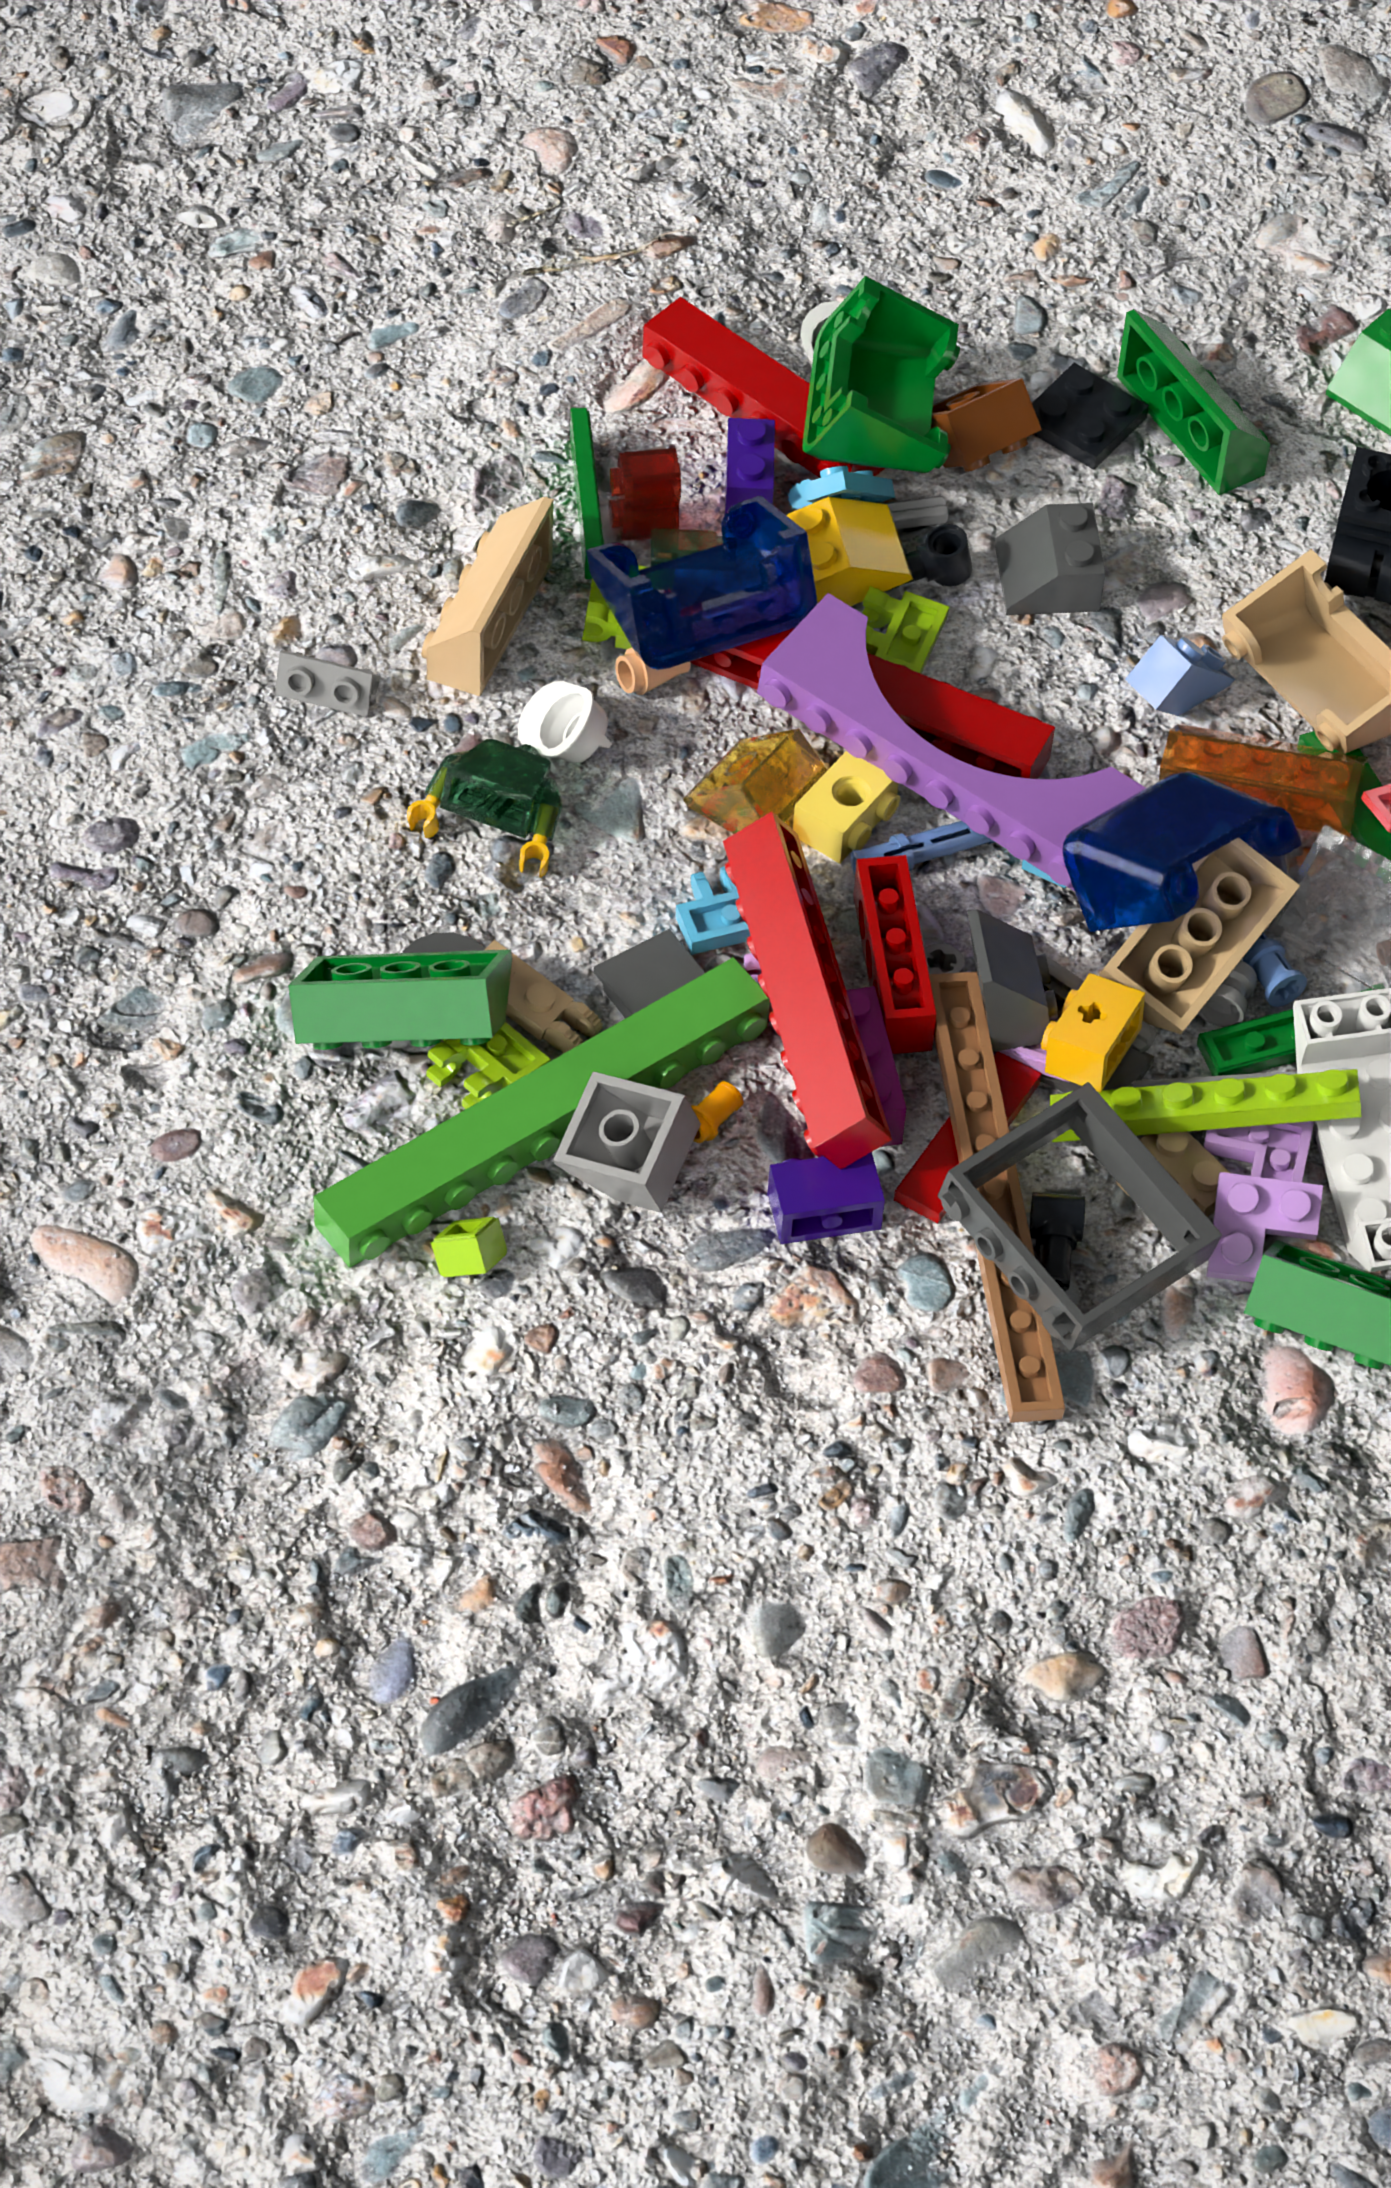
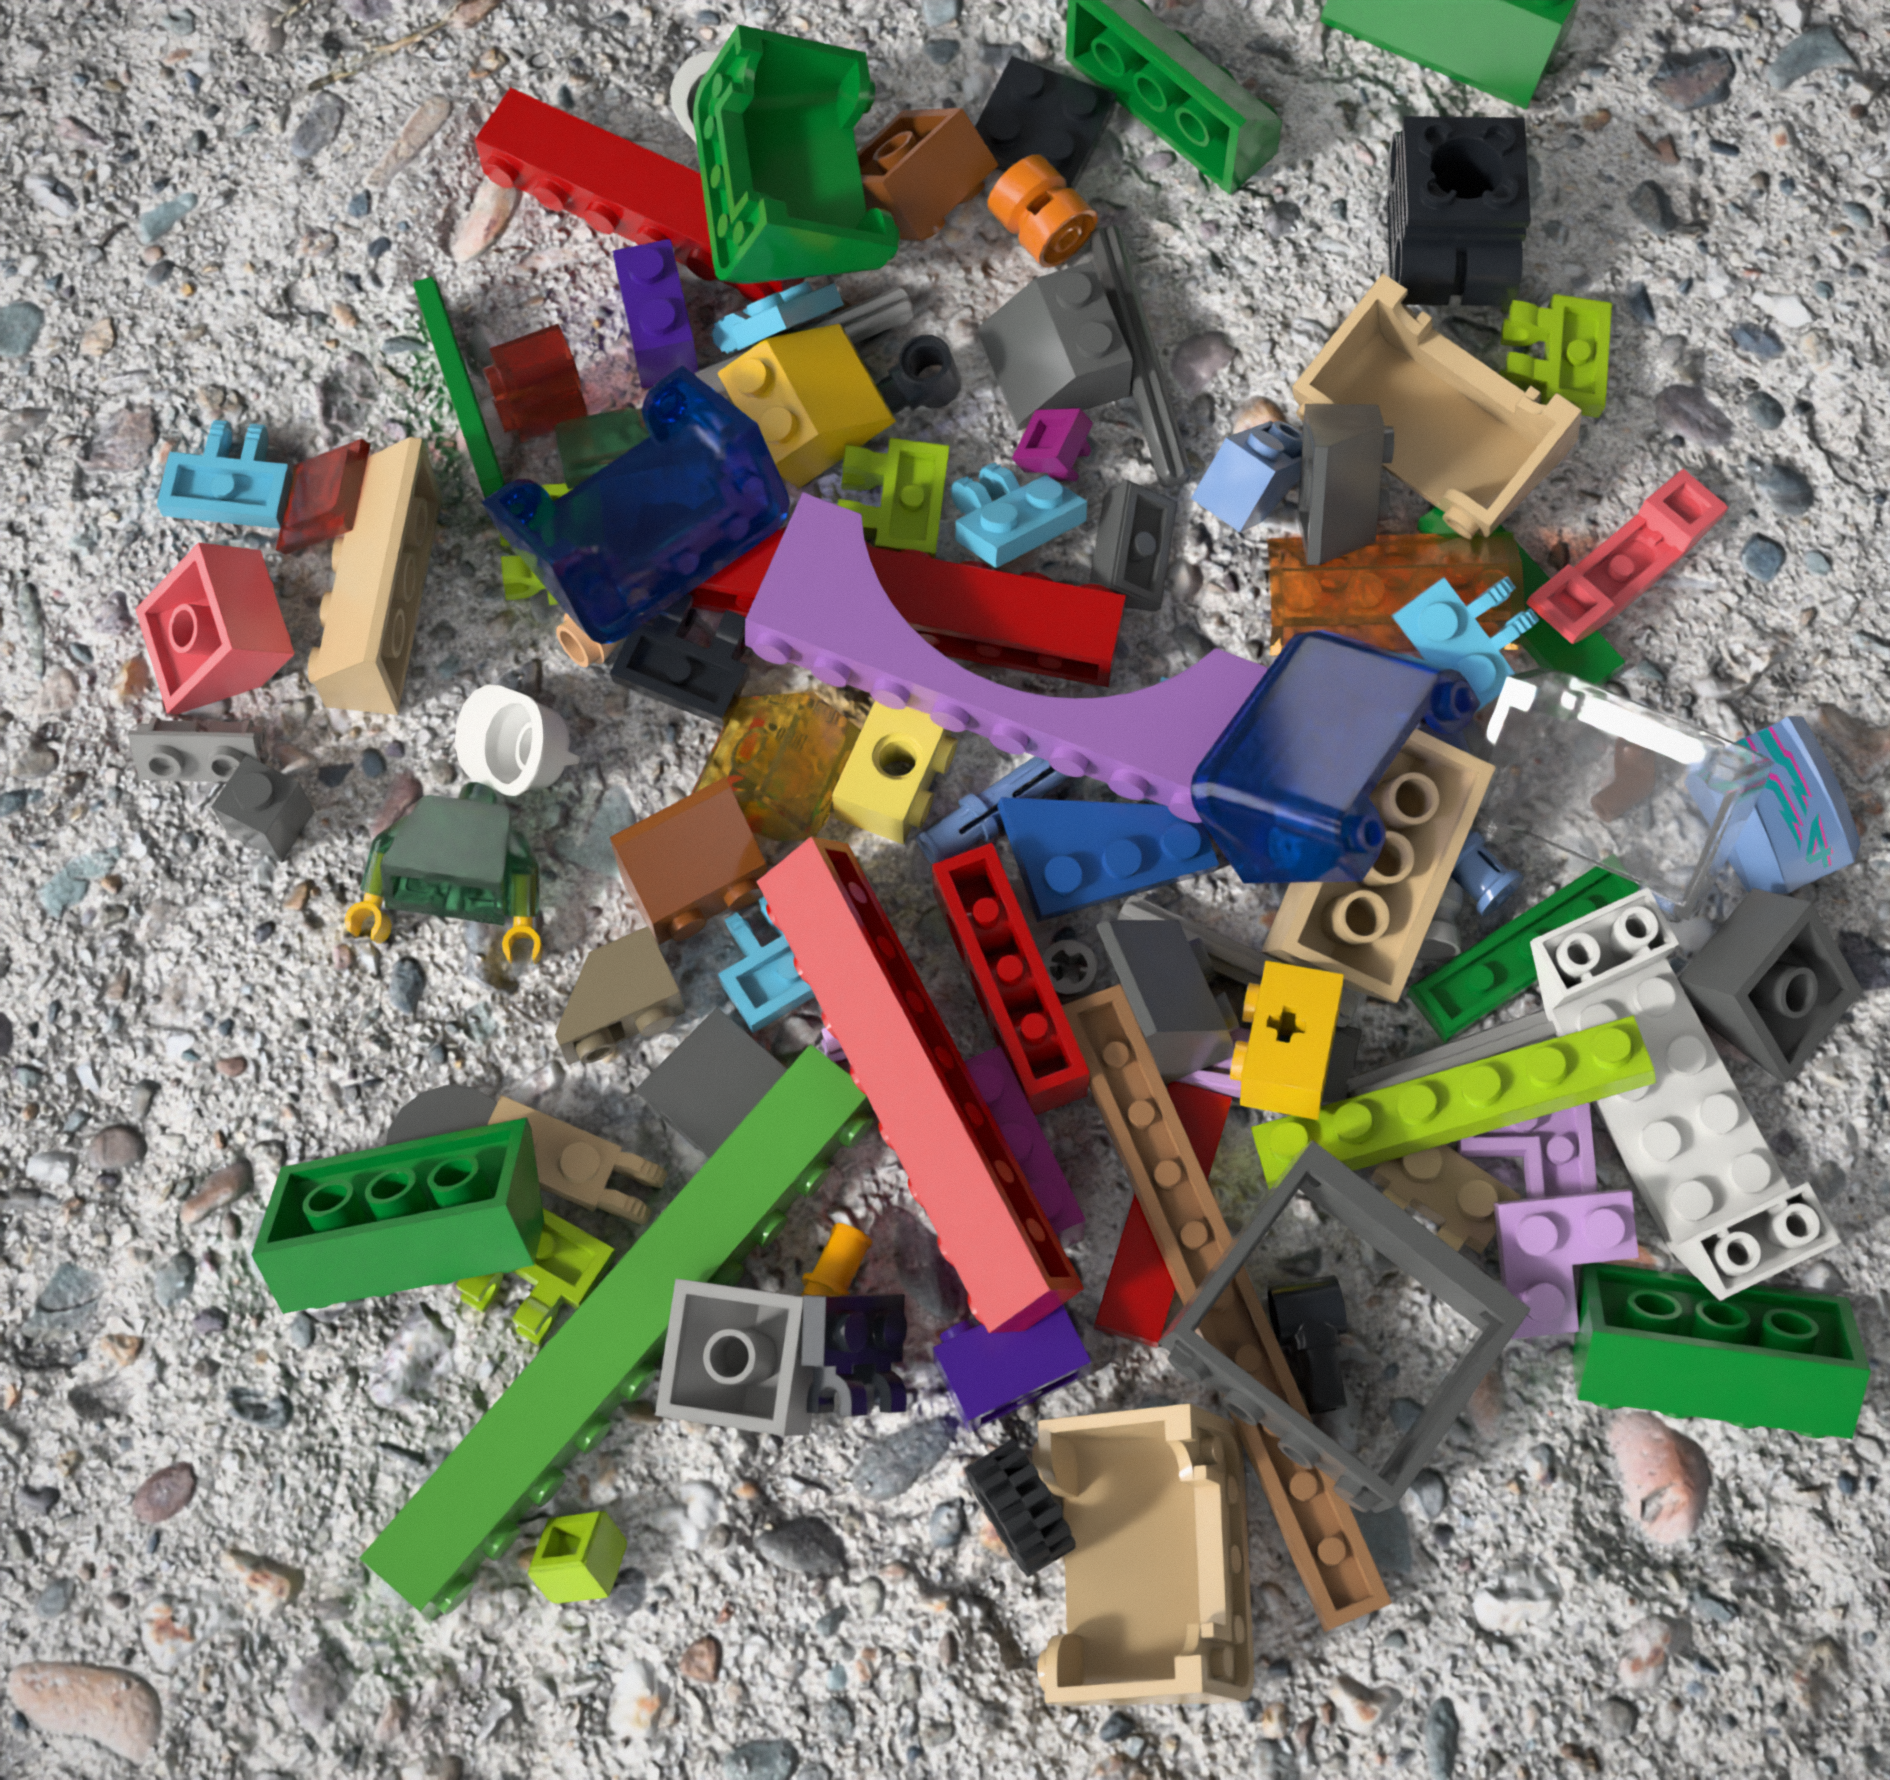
camera: 10 degrees left, 15 degrees up
(359, 603) = (214, 627): none -> coral slope
(366, 725) = (263, 808): none -> dark grey brick
(393, 518) = (225, 487): none -> medium azure hinge
(464, 535) = (323, 497): none -> clear red piece
(597, 904) = (618, 995): none -> dark tan slope
(674, 823) = (690, 862): none -> dark orange slope
(702, 710) = (681, 672): none -> black plate
(712, 1151) = (858, 1332): none -> black plate
(805, 1279) = (1020, 1508): none -> black tyre
(896, 1333) = (1156, 1562): none -> tan windscreen
(967, 880) = (1099, 851): none -> blue wing
(976, 661) = (1017, 516): none -> medium azure hinge
(1030, 621) = (1053, 443): none -> magenta tile
(1066, 466) = (1038, 206): none -> orange wheel
(1076, 706) = (1134, 544): none -> dark grey slope
(1116, 584) = (1146, 376): none -> dark grey axle
(1243, 684) = (1342, 479): none -> dark grey slope
(1290, 788) = (1450, 636): none -> medium azure hinge

